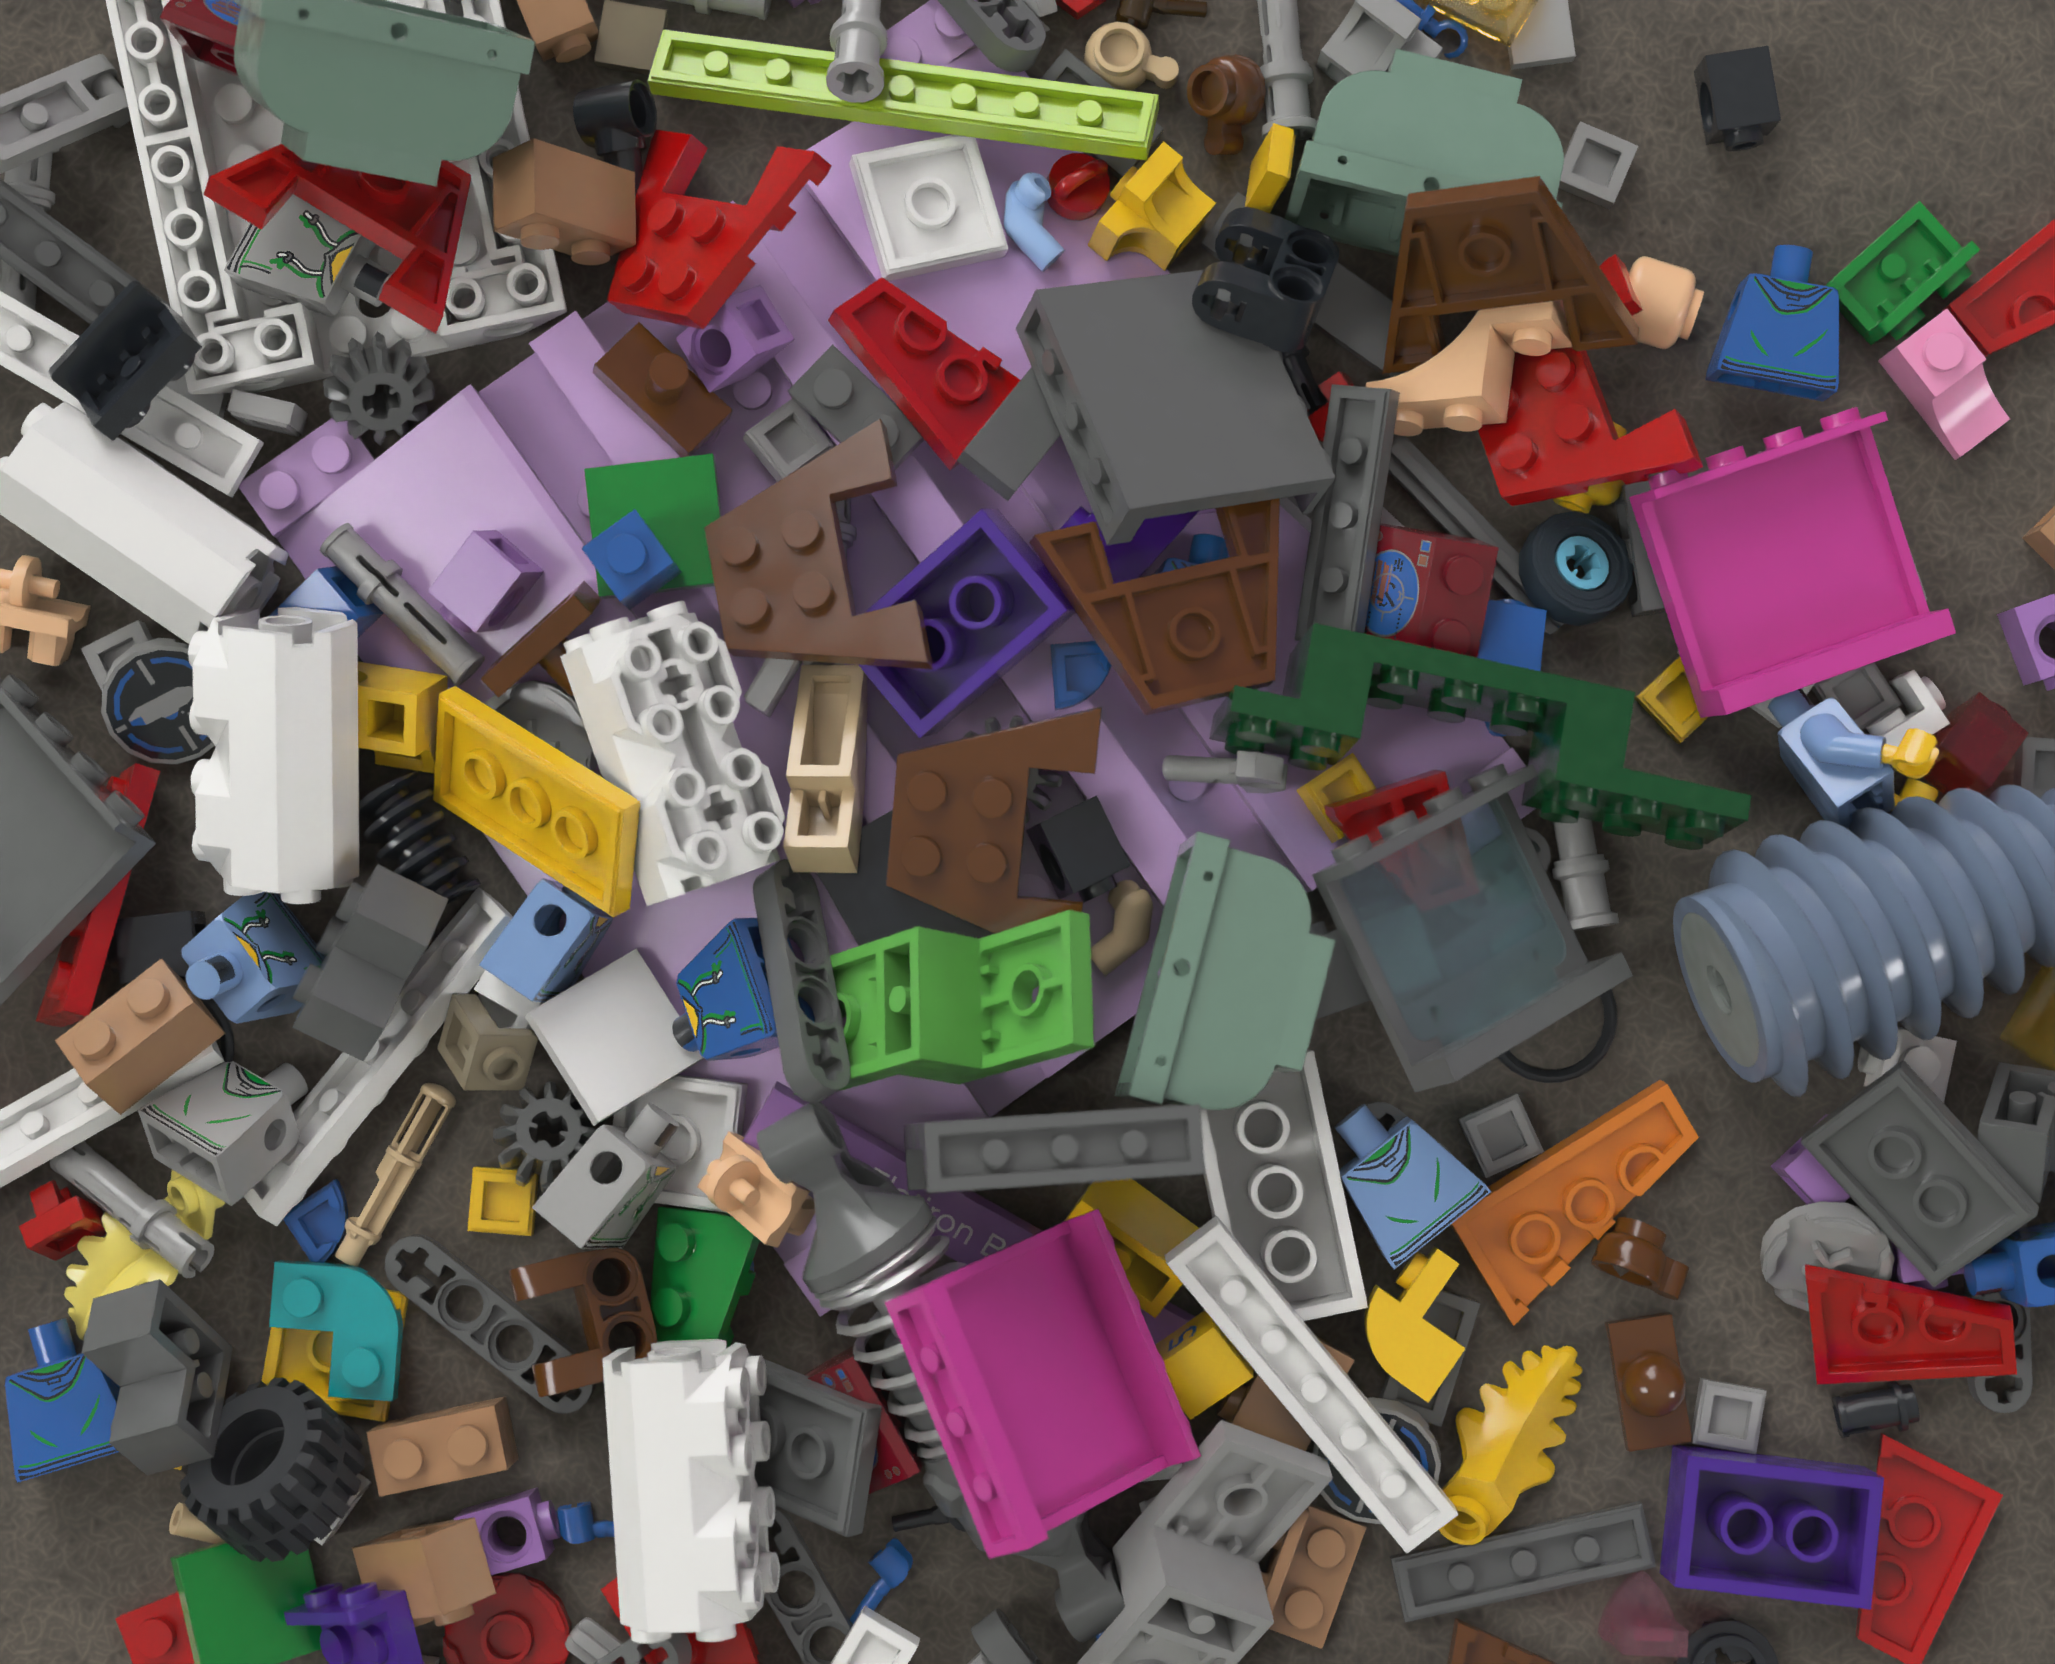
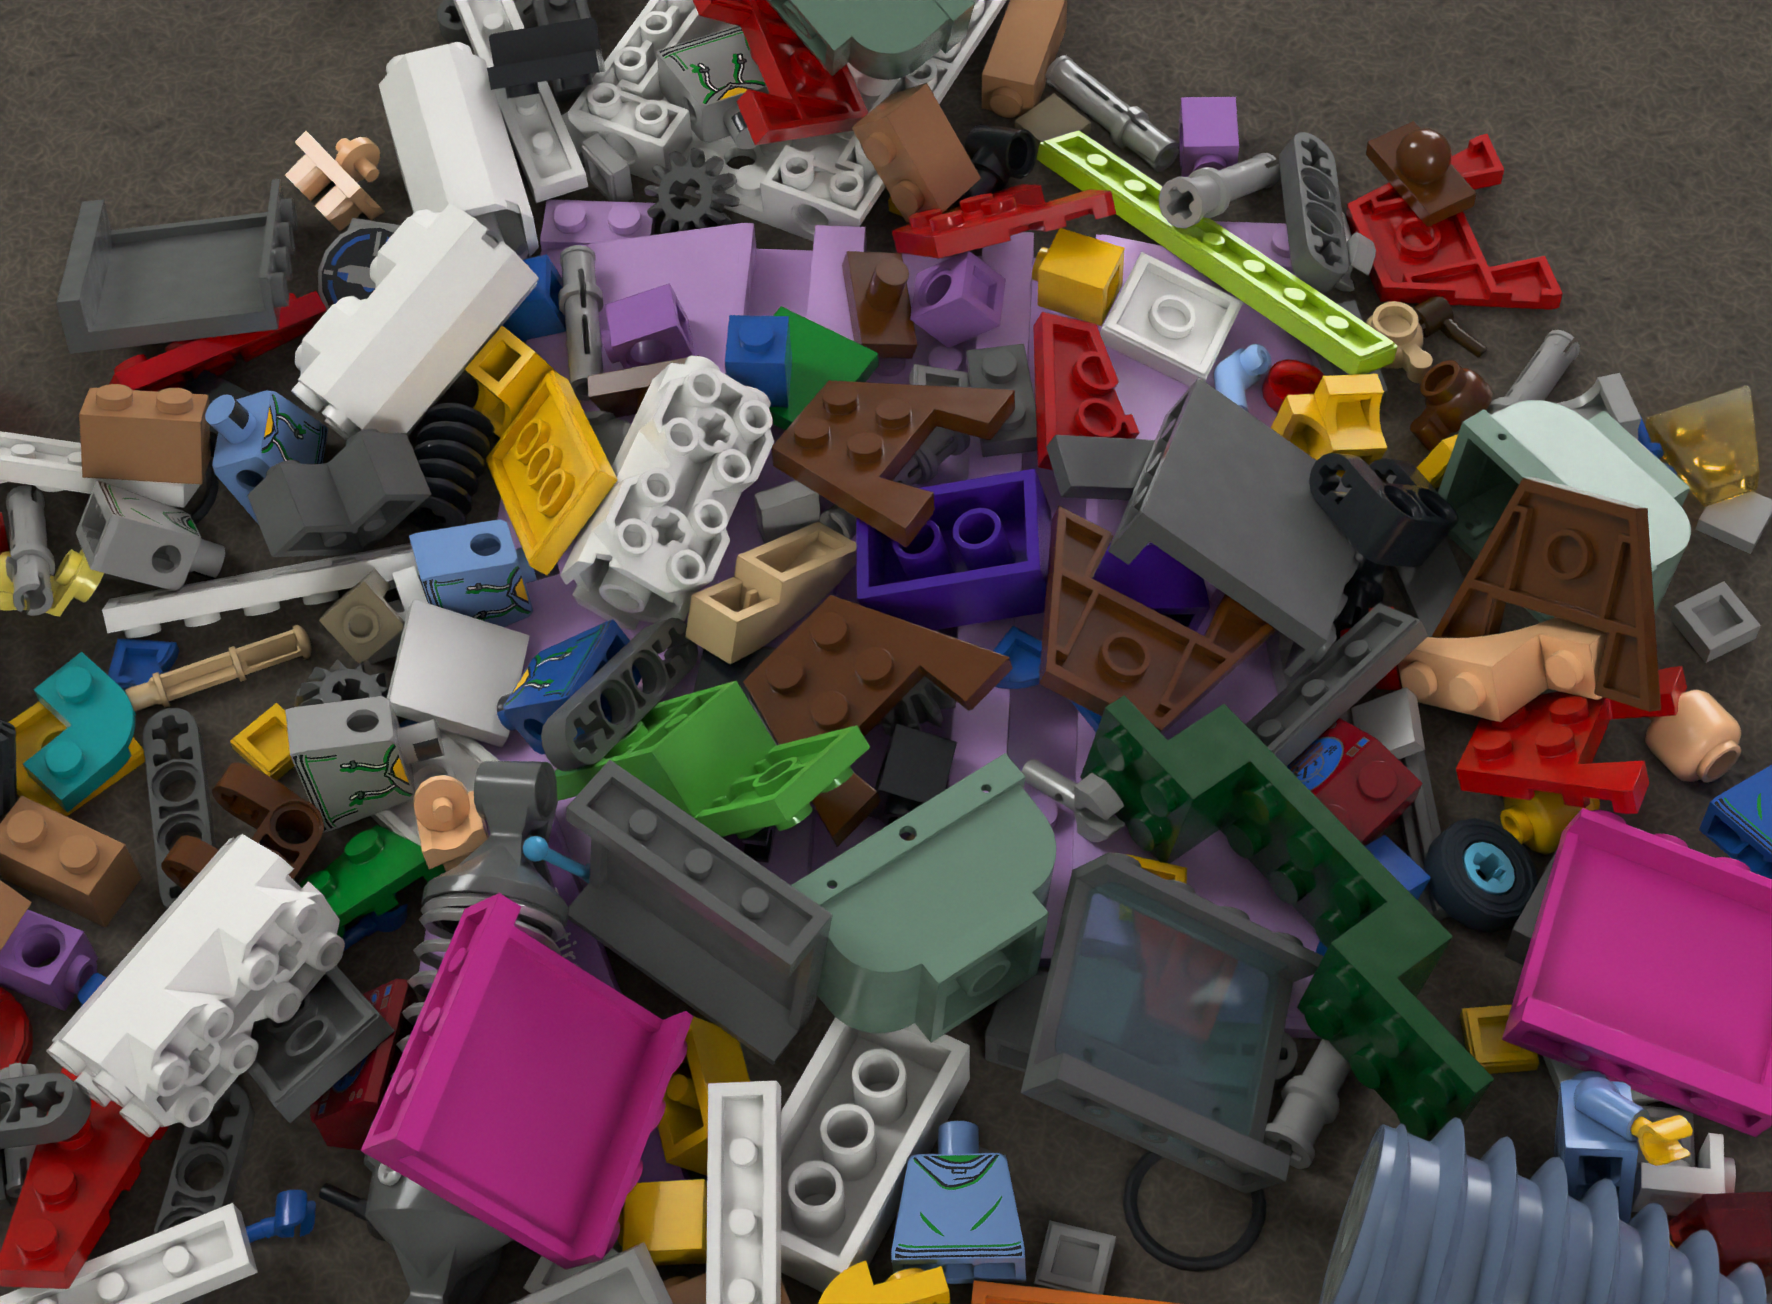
camera: 40 degrees right, 30 degrees down
(826, 234) = (1079, 276): none -> yellow brick
(889, 1132) = (537, 849): none -> dark azure hinge
(1414, 487) = (1393, 721): none -> light grey tile

